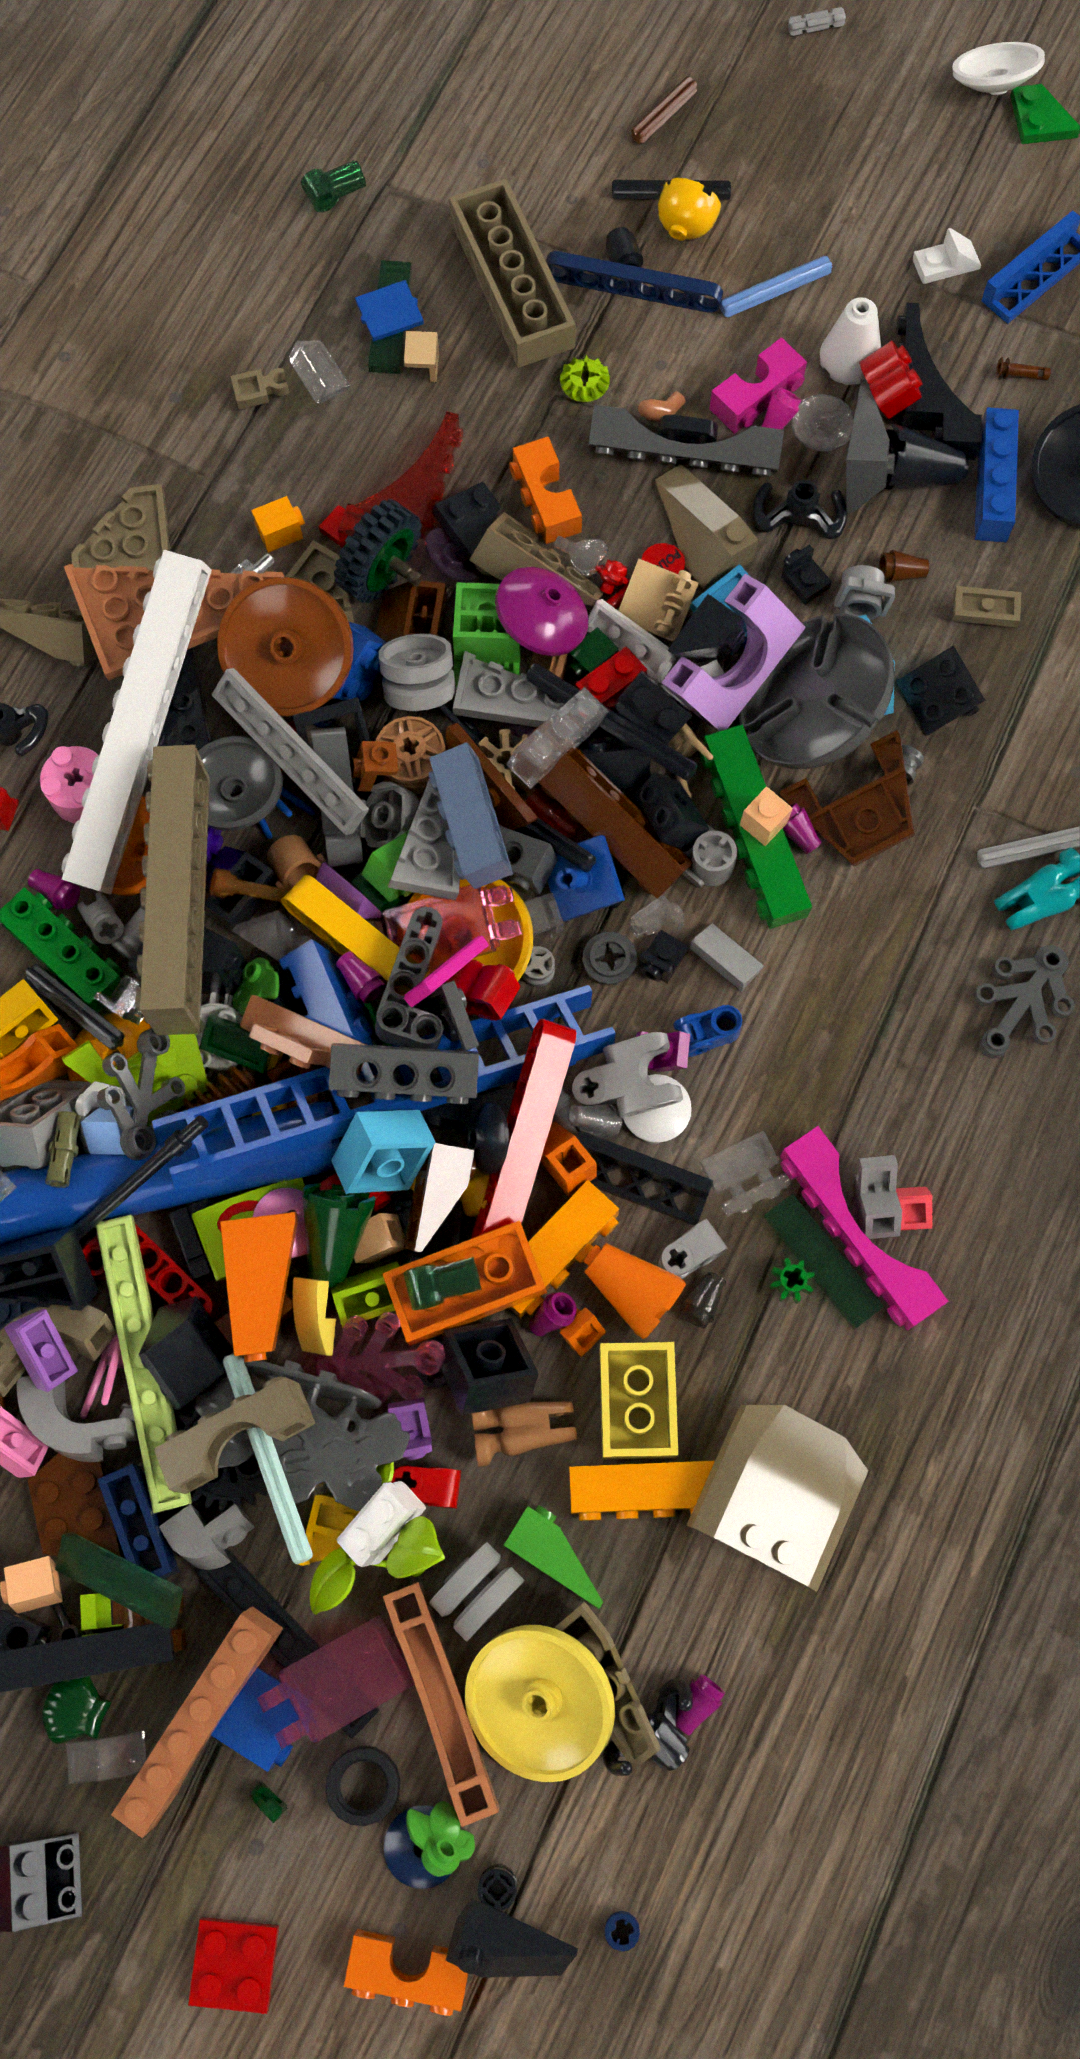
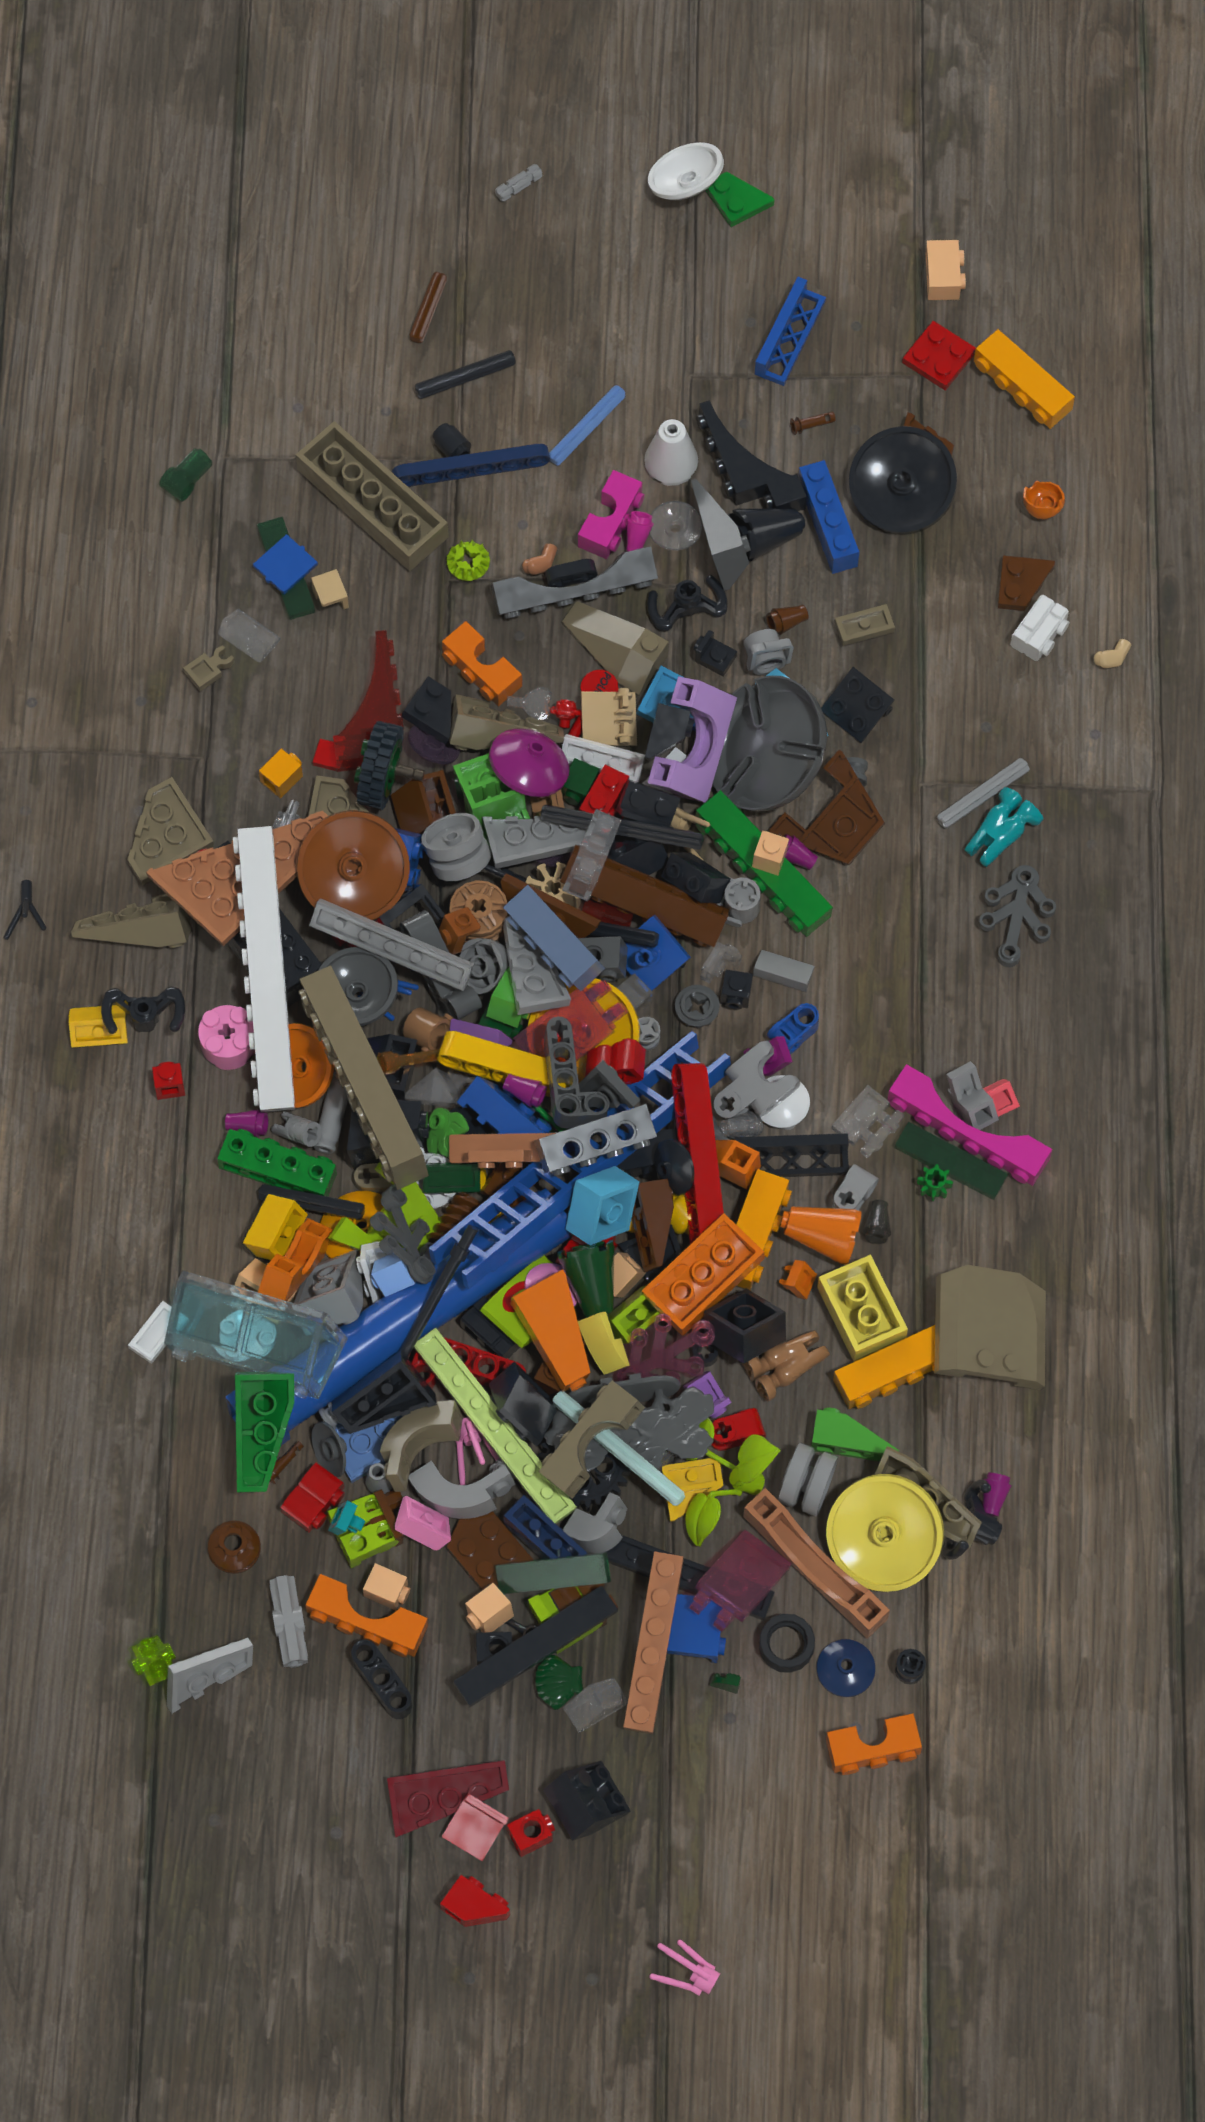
camera: 25 degrees left, 5 degrees down
(41, 1350) = (420, 1443): medium lavender slope -> none
(63, 1149) = (368, 1297): olive pin -> none
(123, 1000) = (350, 1179): clear panel -> none
(233, 1965) = (752, 1795): red plate -> none
(379, 1523) = (720, 1458): white brick -> none
(430, 1284) = (684, 1280): clear green piece -> none
(440, 1838) = (854, 1646): bright green plate -> none
(445, 971) = (591, 1056): dark pink tile -> none
(502, 1946) = (934, 1695): black slope -> none
(554, 1313) = (774, 1273): magenta cone -> none
(611, 1926) = (1016, 1661): dark blue bush -> none
(687, 209) = (489, 391): yellow cylinder -> none
(891, 379) = (715, 473): red brick -> none
(946, 260) = (713, 351): white slope -> none

